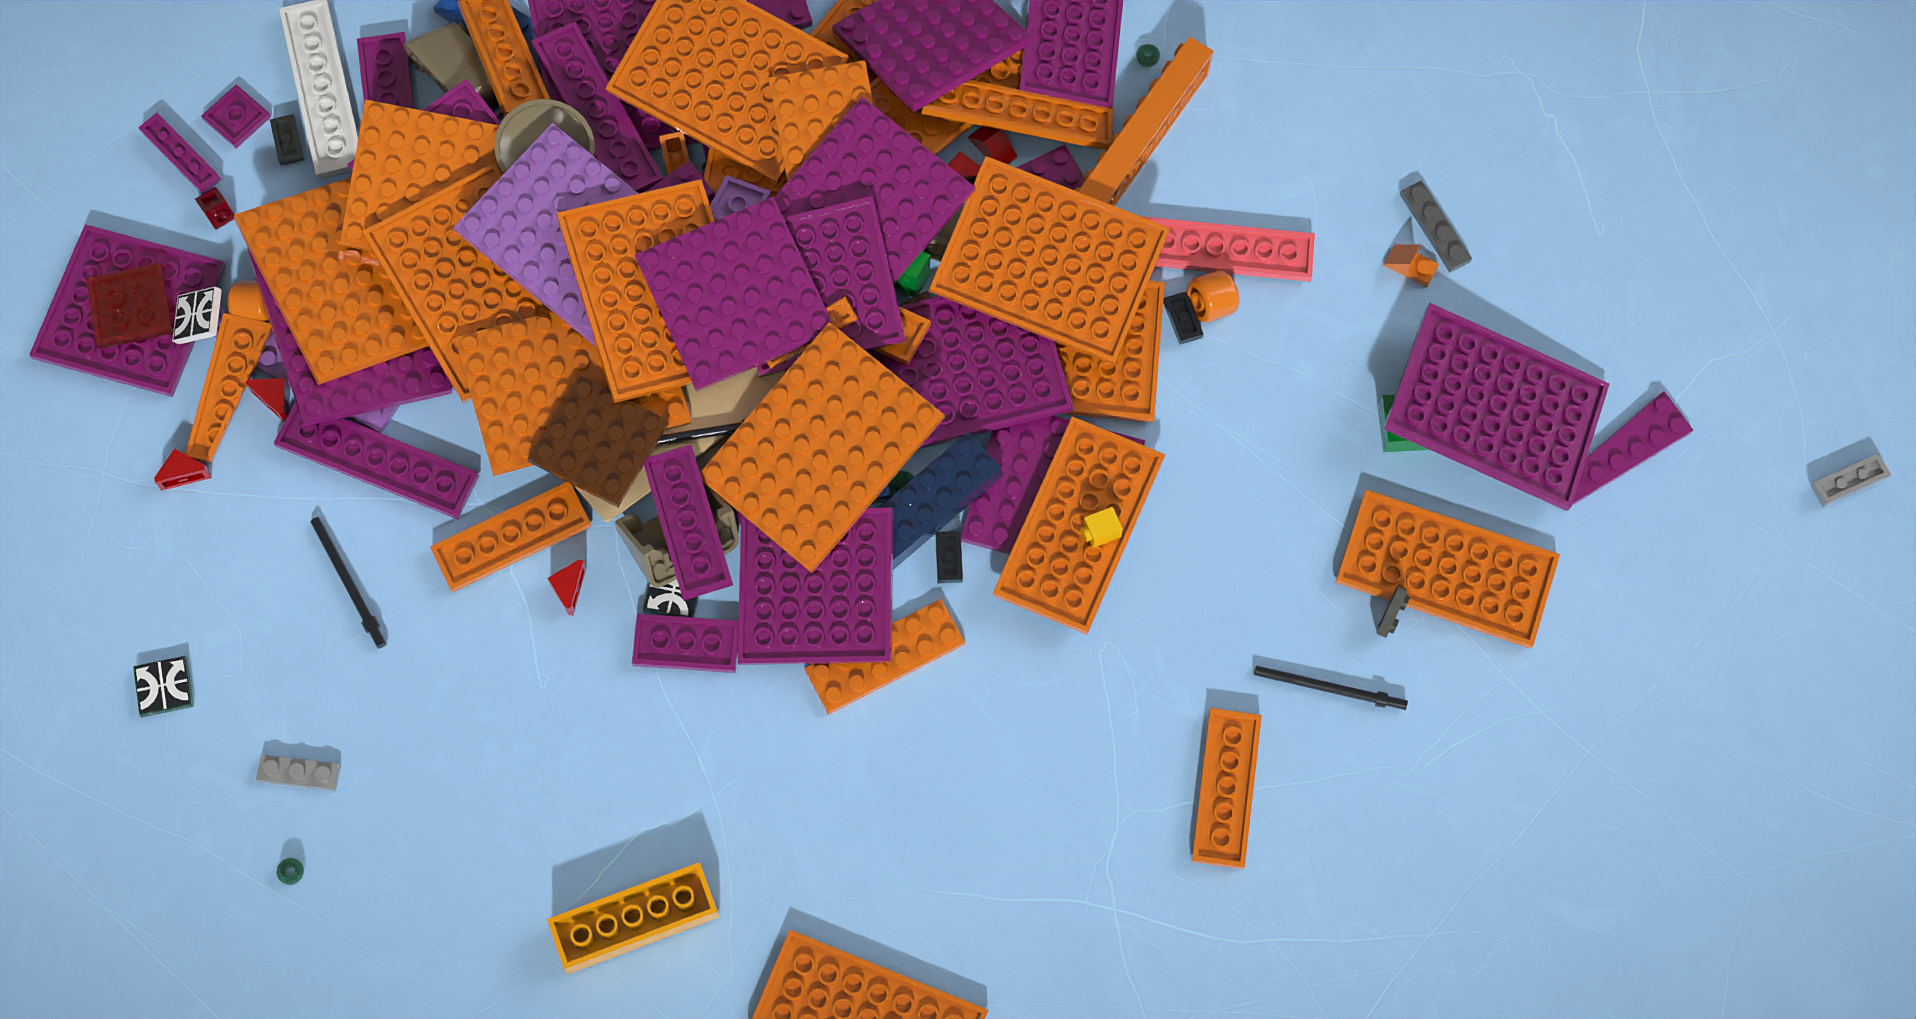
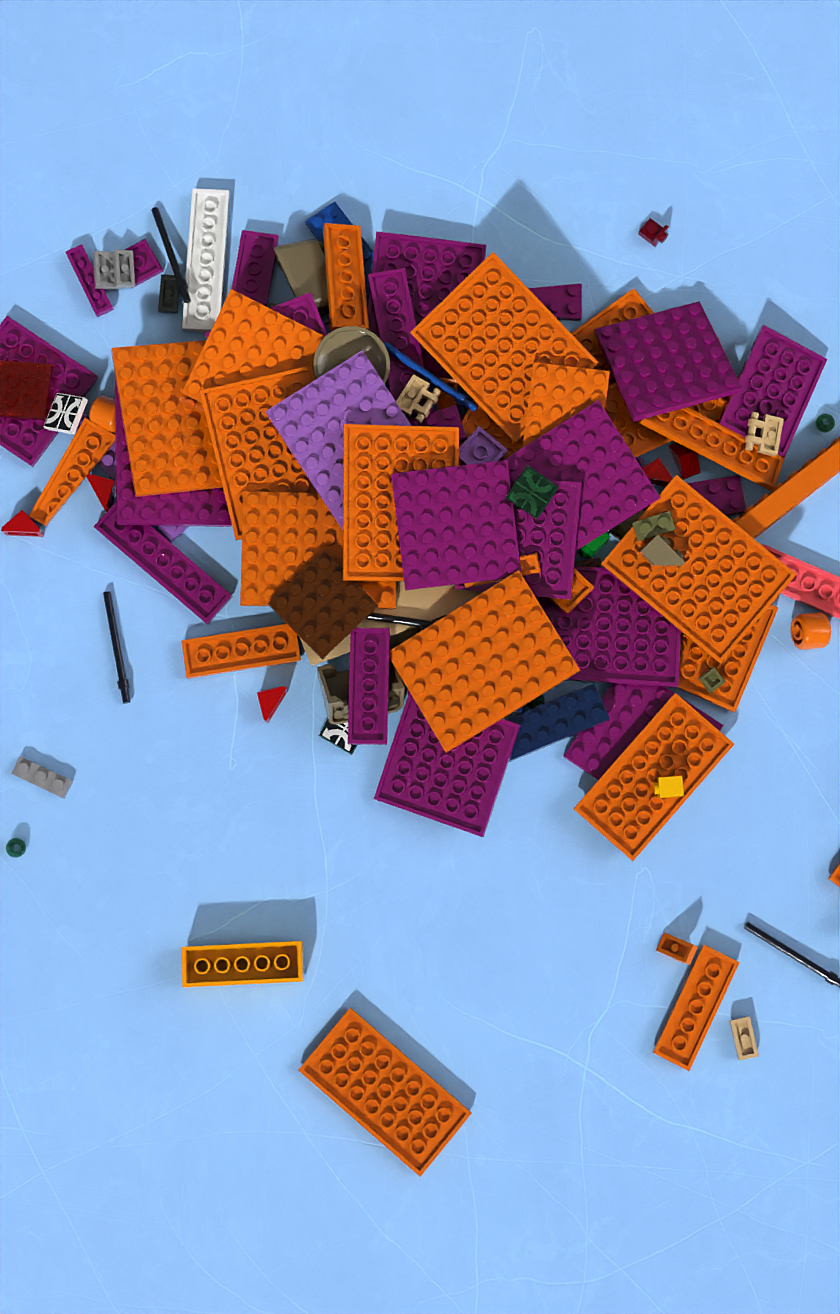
camera: 20 degrees right, 10 degrees up
(207, 130) = (113, 269): none -> light grey slope
(215, 208) = (103, 331): dark red bracket -> none
(298, 121) = (181, 283): none -> black bar
(632, 162) = (412, 395): none -> tan plate
(685, 643) = (341, 771): magenta plate -> none
(691, 150) = (460, 397): none -> blue bar
(815, 224) = (532, 492): none -> clear green tile
(915, 643) = (507, 823): orange plate -> none
(949, 557) = (550, 768): black plate -> none
(978, 224) = (653, 526): none -> olive plate
(998, 253) = (661, 554): none -> dark tan slope
(1085, 85) = (769, 436): none -> tan plate
(1112, 390) = (711, 680): none -> olive tile
(1178, 724) = (676, 948): none -> orange slope
(1183, 318) = (782, 639): black plate -> none
(1298, 806) = (743, 1038): none -> tan plate

